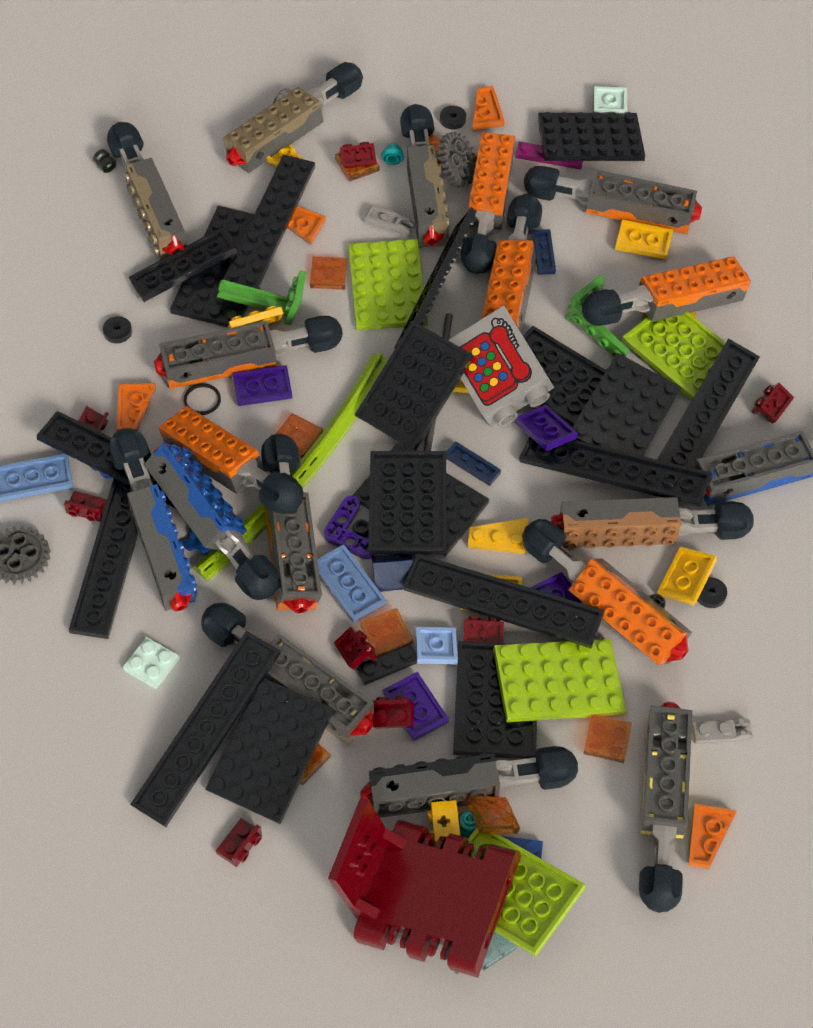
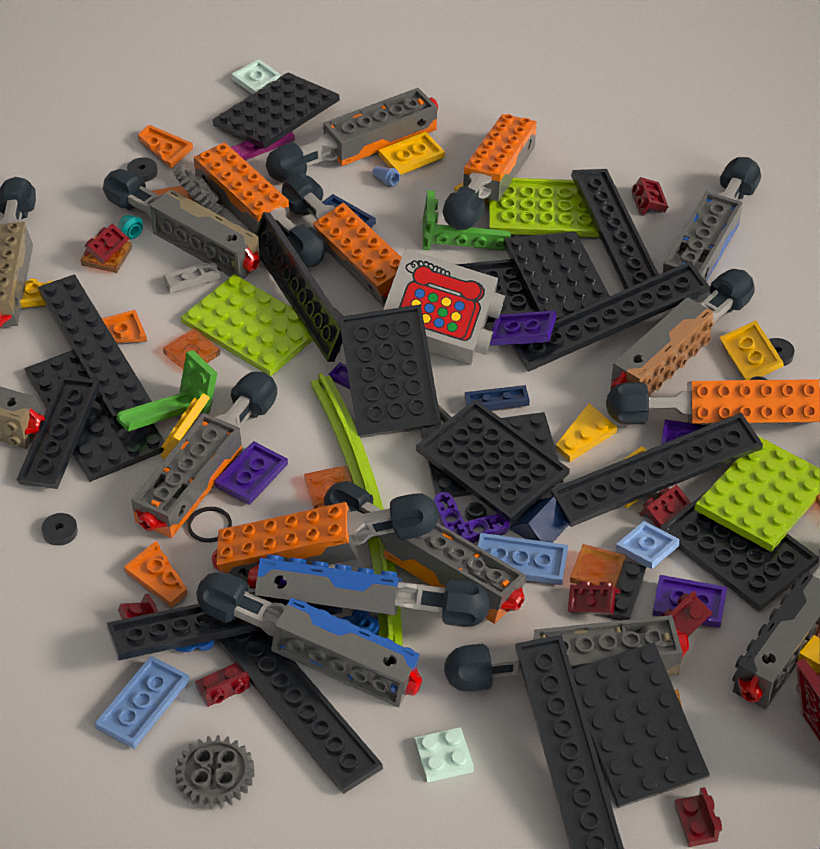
camera: 45 degrees left, 10 degrees down
(606, 245) = (389, 176): none -> medium blue cone

